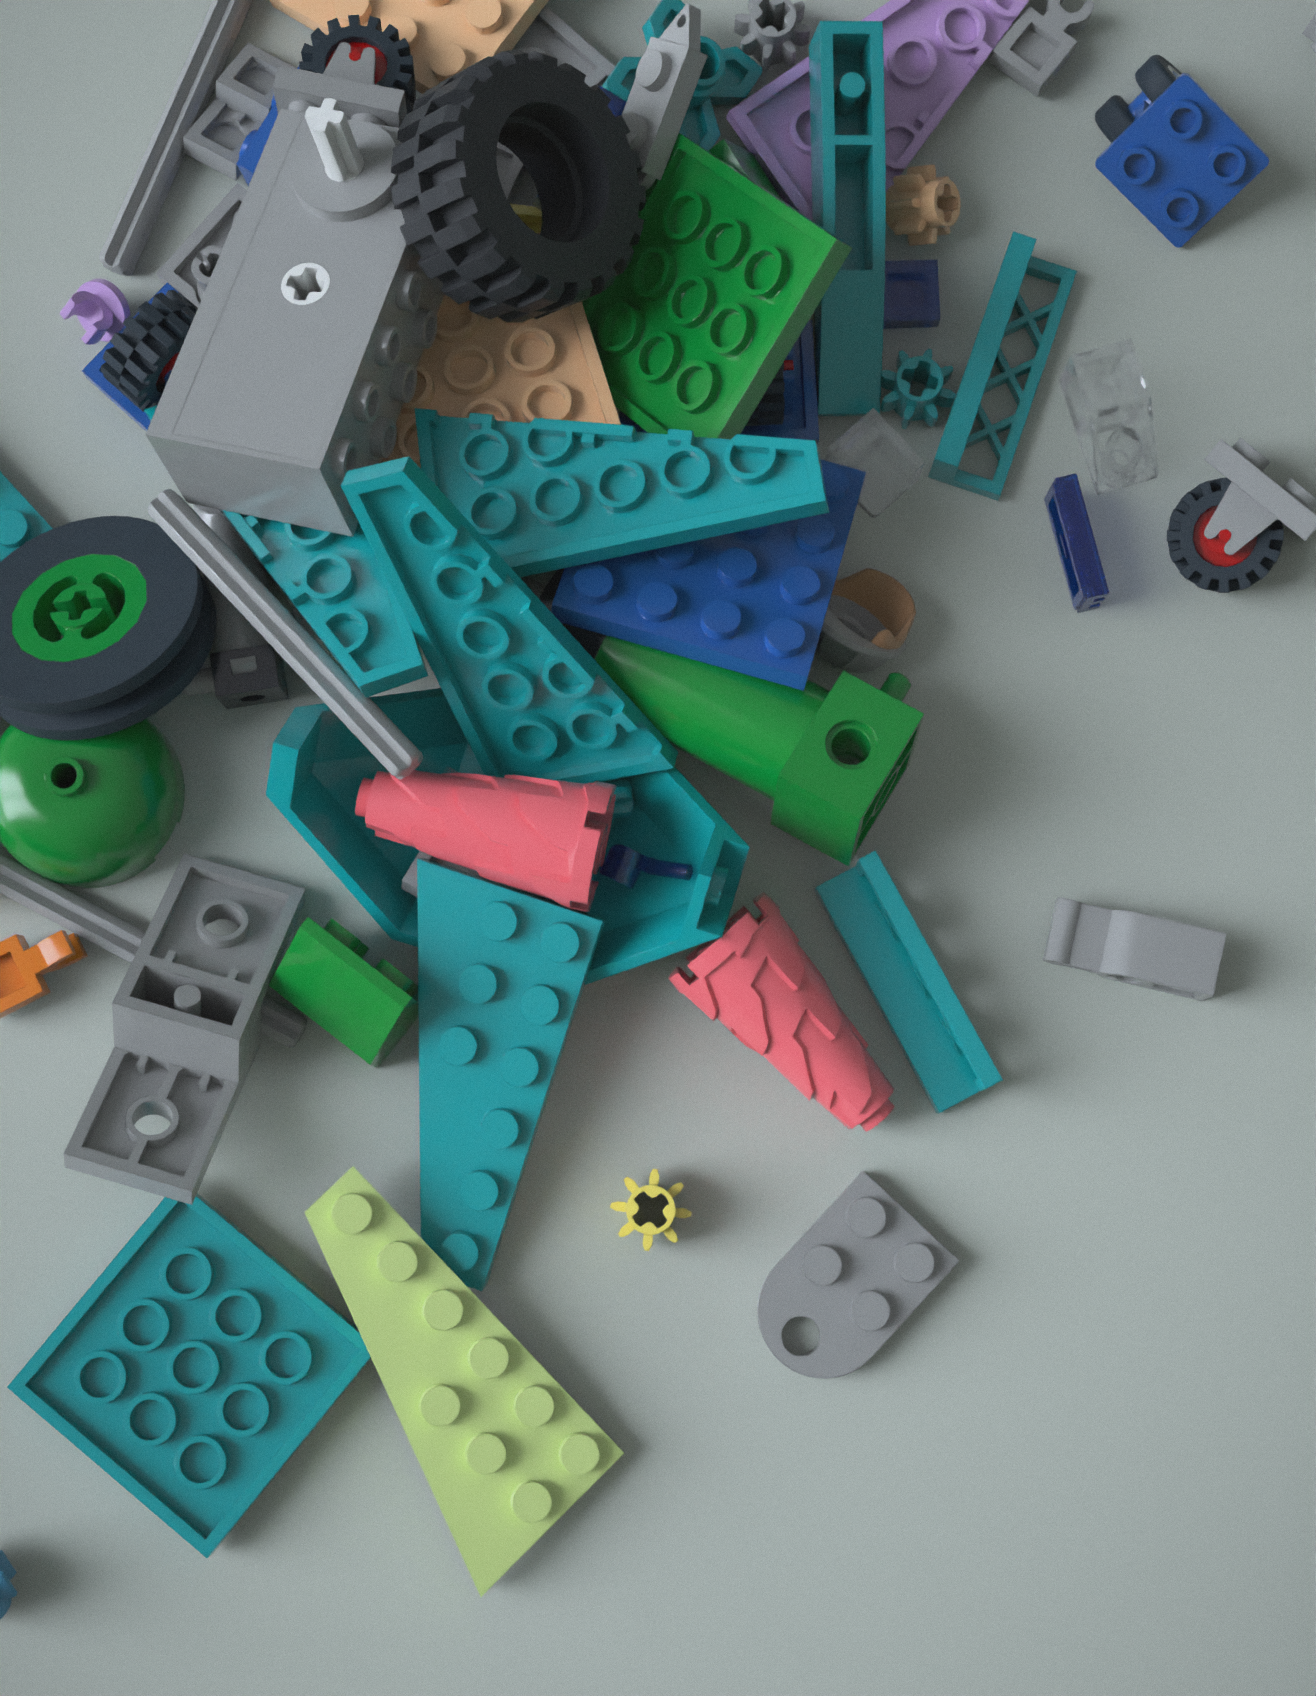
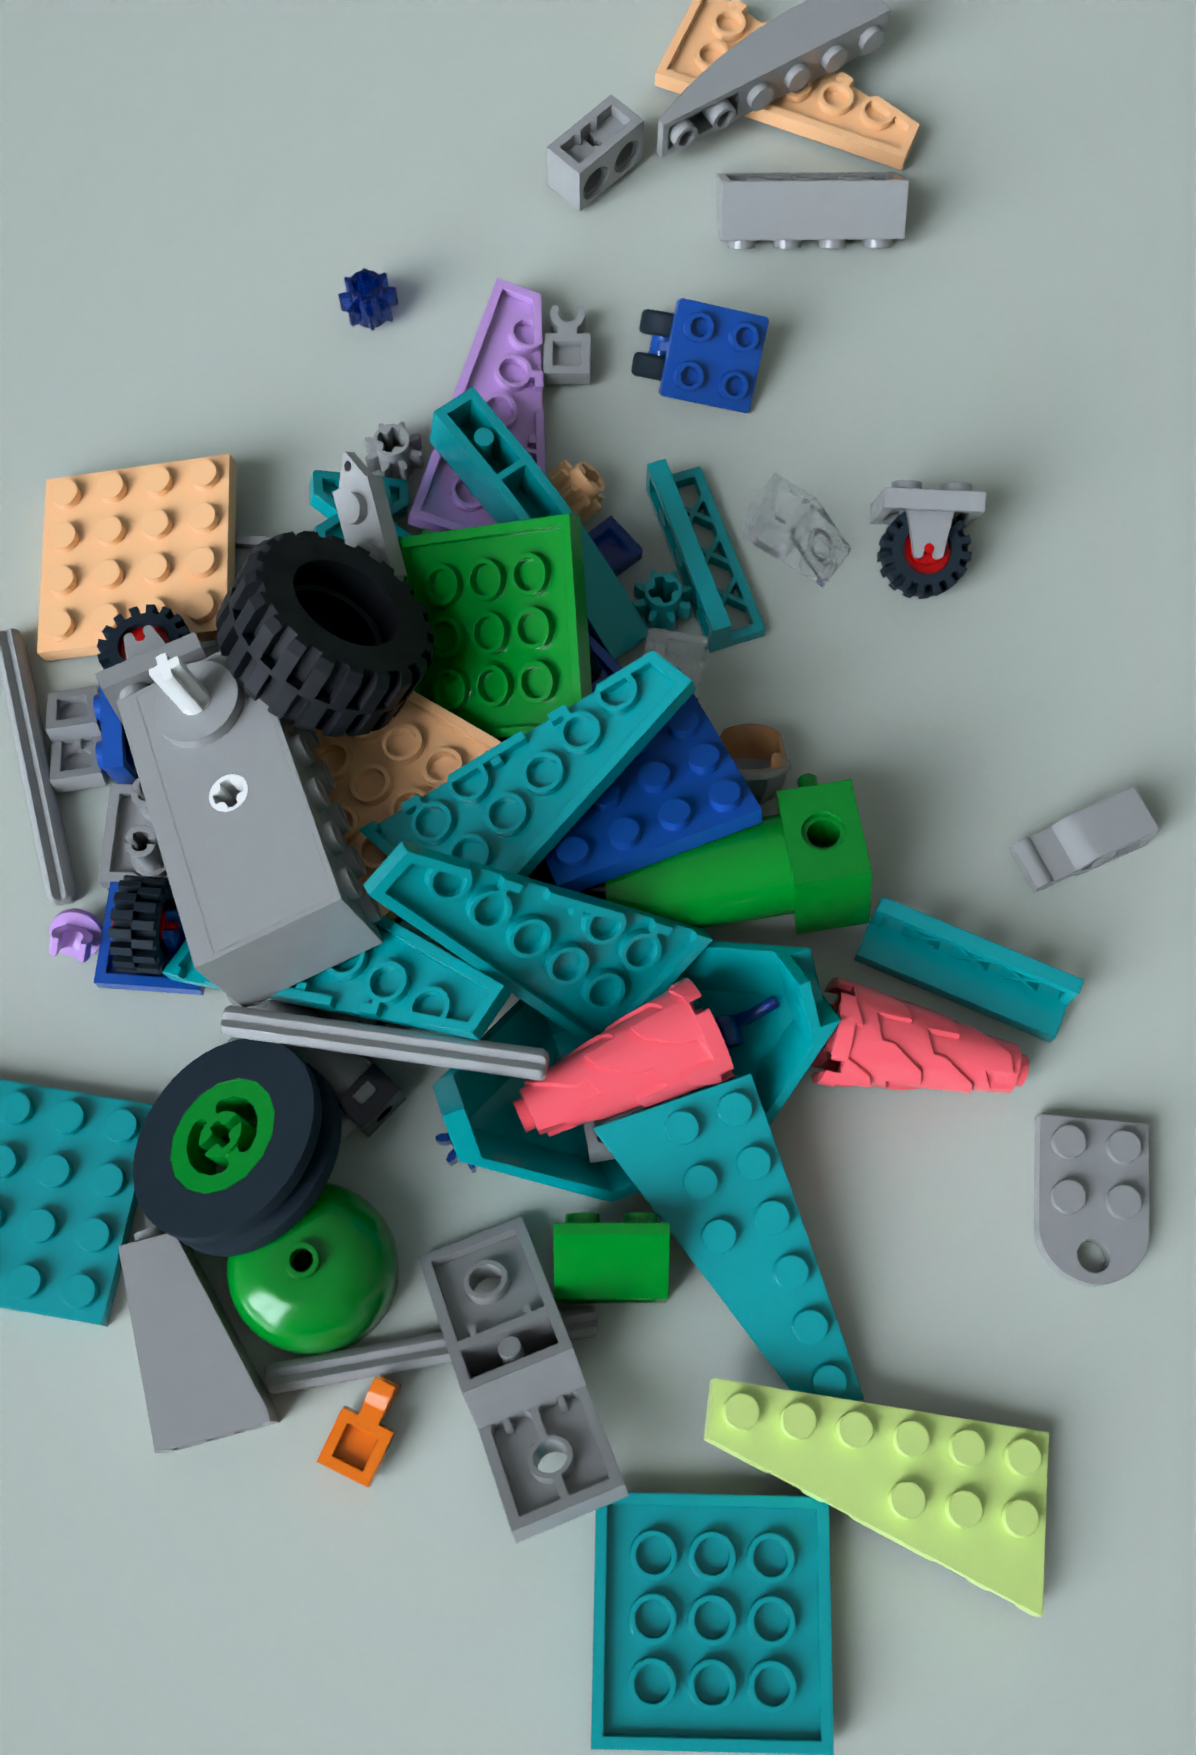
camera: 40 degrees left, 10 degrees down
(632, 1207) = (941, 1240): light yellow gear -> none
(1076, 543) = (838, 622): clear blue tile -> none

